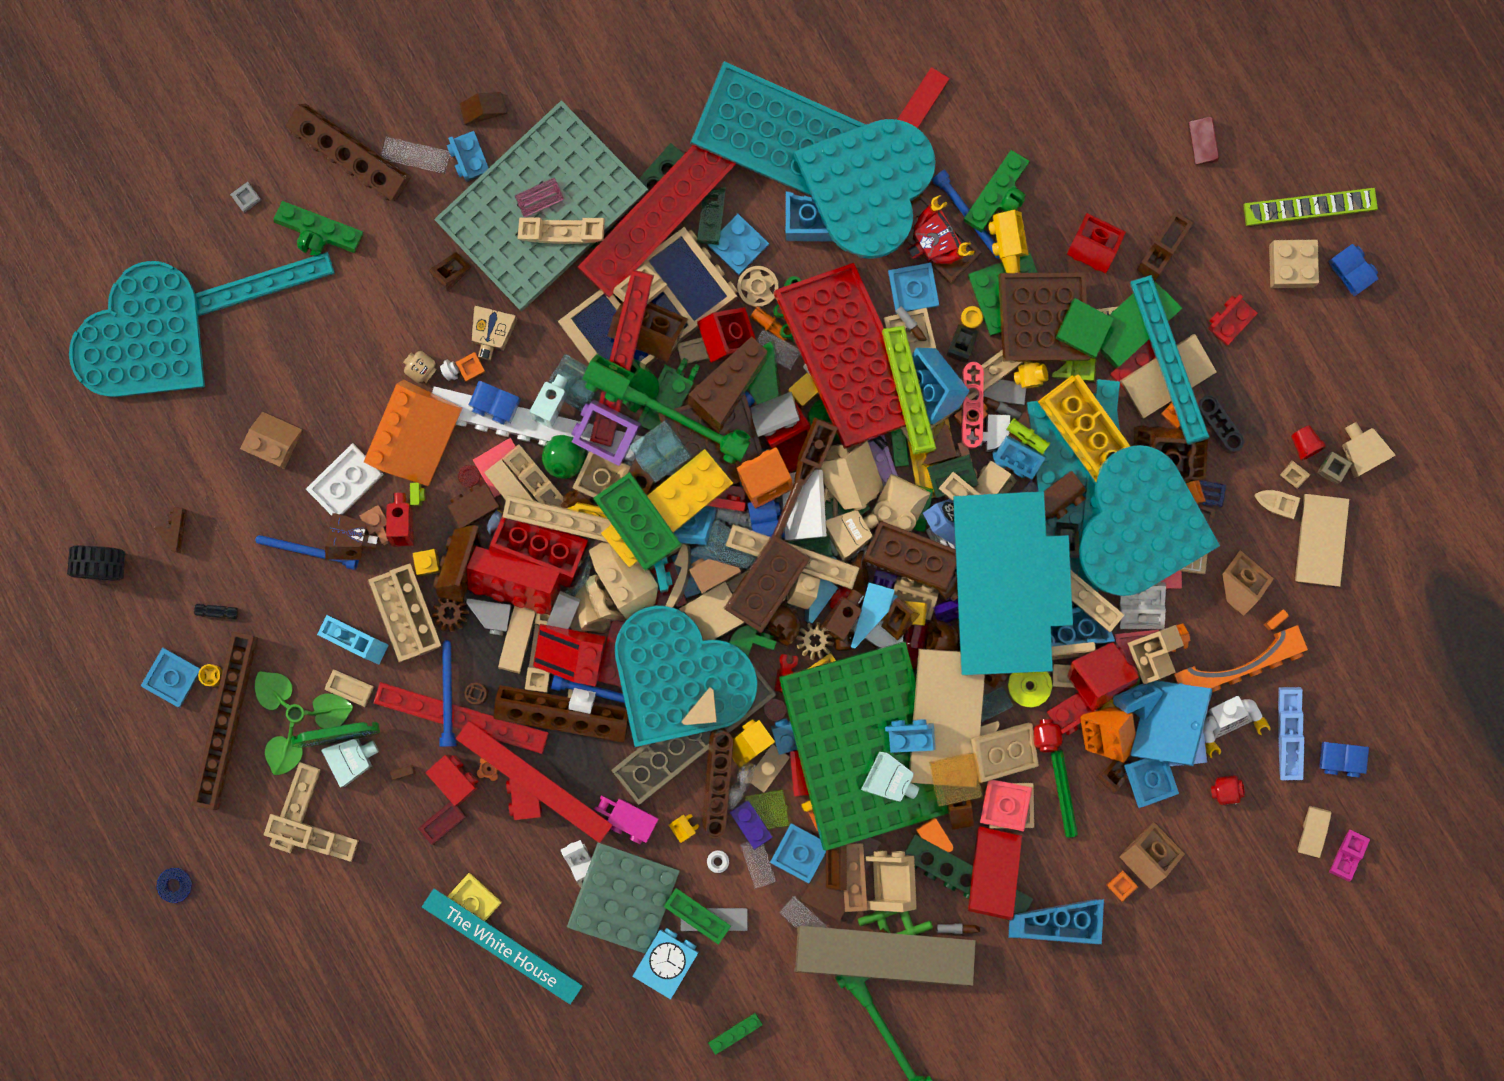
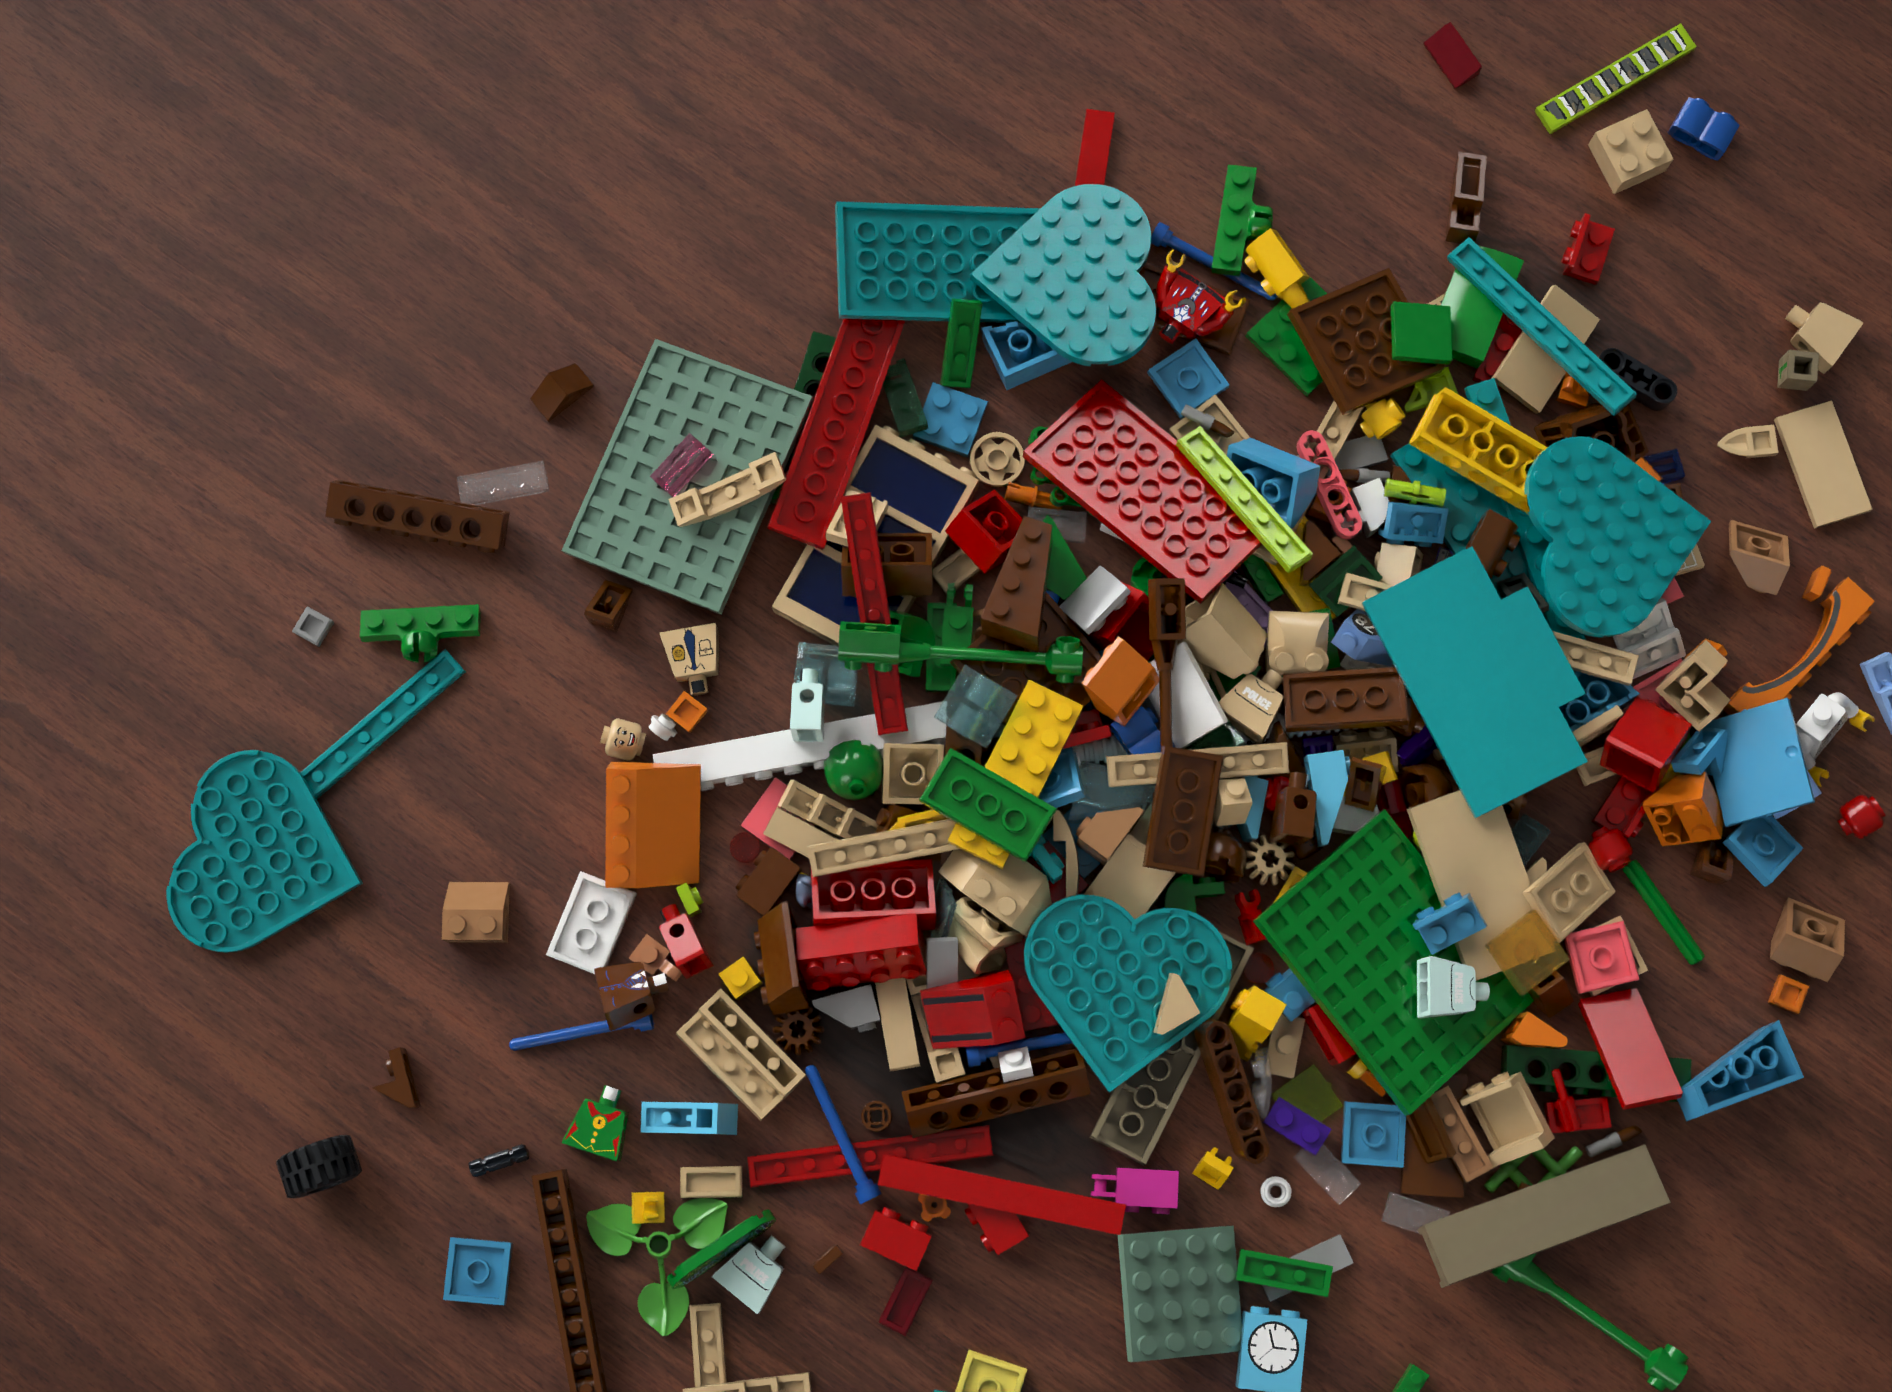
camera: 30 degrees left, 5 degrees down
(207, 675) = (522, 1245): yellow wheel -> none
(291, 618) = (599, 1126): none -> green torso
(300, 686) = (648, 1207): none -> yellow tile
(469, 156) = (570, 455): dark azure bracket -> none
(494, 402) = (738, 740): blue brick -> none
(578, 859) = (1102, 1270): white brick -> none
(632, 429) = (926, 724): medium lavender window -> none
(767, 195) = (961, 343): none -> green tile
(804, 390) = (1114, 556): yellow brick -> none
(934, 891) = (1565, 1104): none -> red axle
(941, 901) = (1592, 1114): none -> red plate
(962, 343) = (1279, 420): pearl dark grey slope -> none
(972, 317) = (1274, 383): yellow tile -> none
(1034, 697) = (1572, 804): neon yellow plate -> none
(1096, 243) = (1383, 230): red slope -> none
(1294, 474) = (1752, 399): tan slope -> none
(1307, 442) = (1750, 355): red piece -> none

